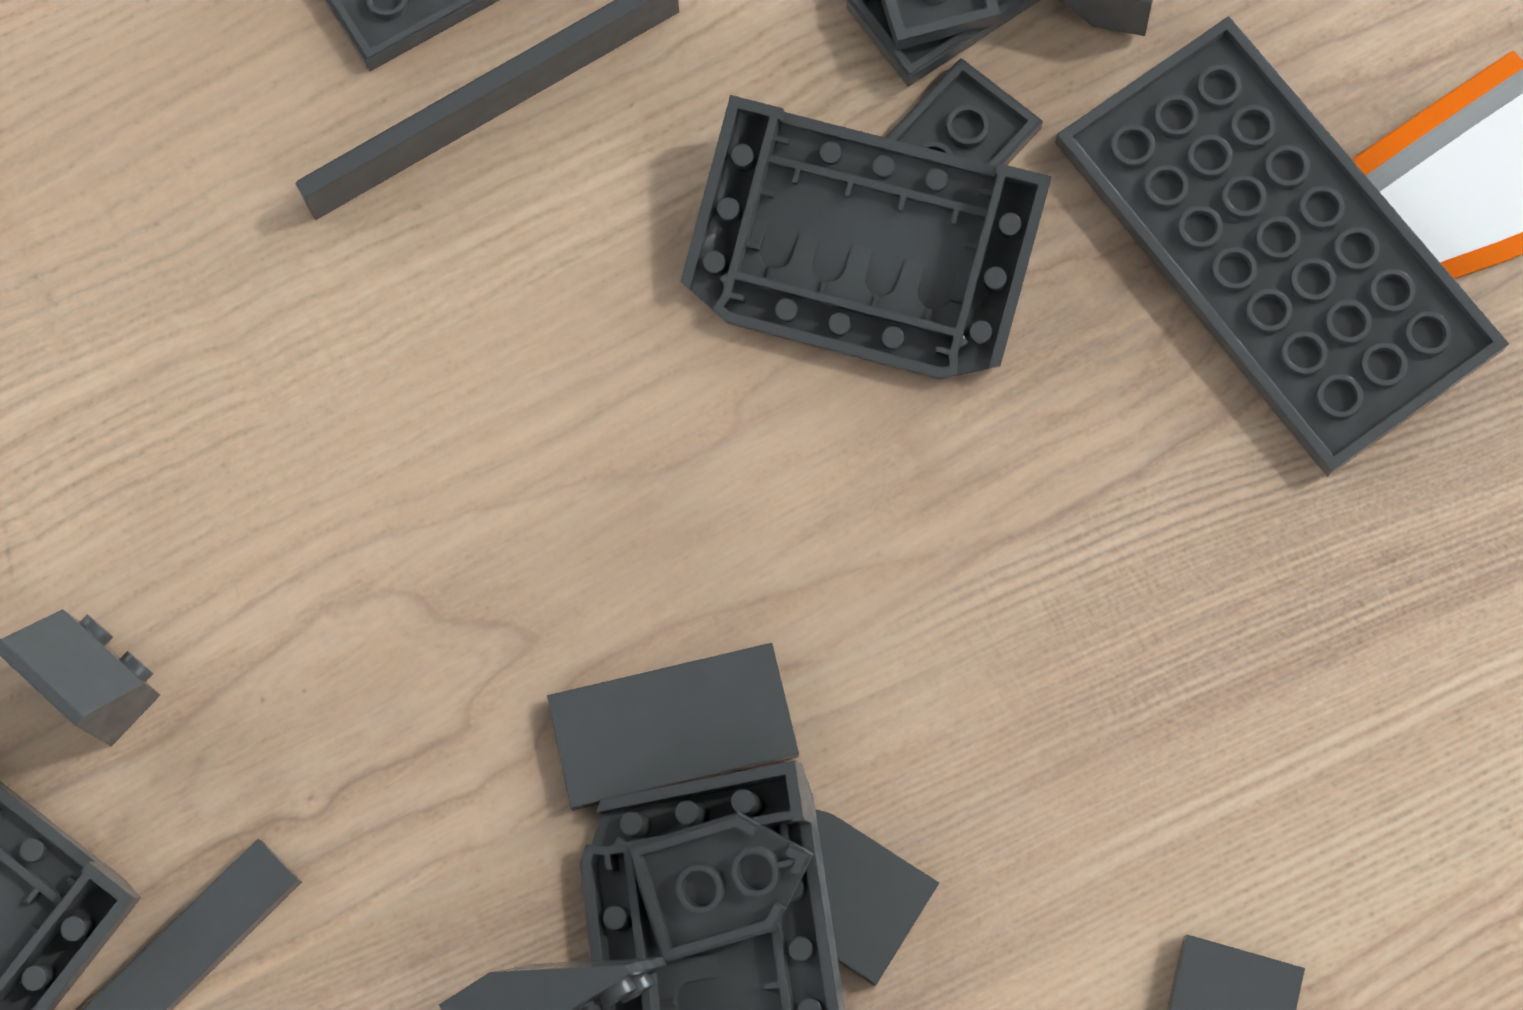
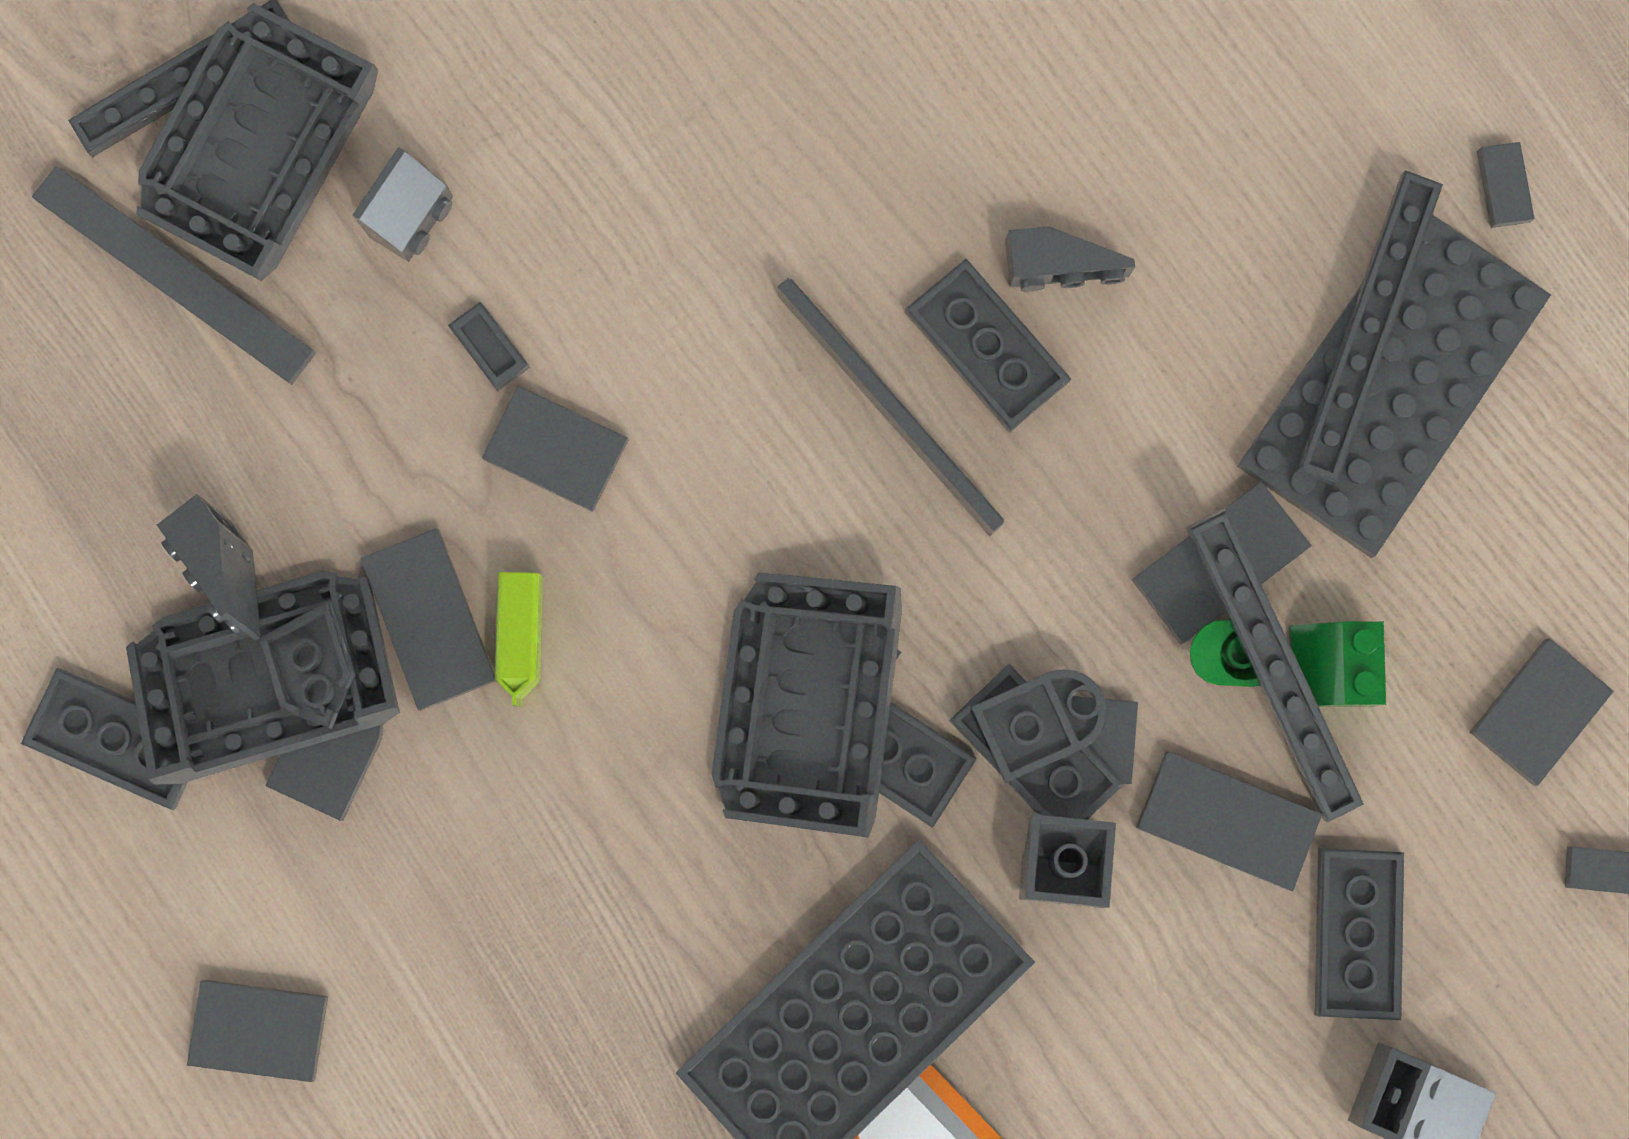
camera: 75 degrees right, 10 degrees up
(304, 596) = (489, 346): none -> dark grey tile
(465, 525) = (555, 448): none -> dark grey tile
(713, 600) = (519, 633): none -> lime piece

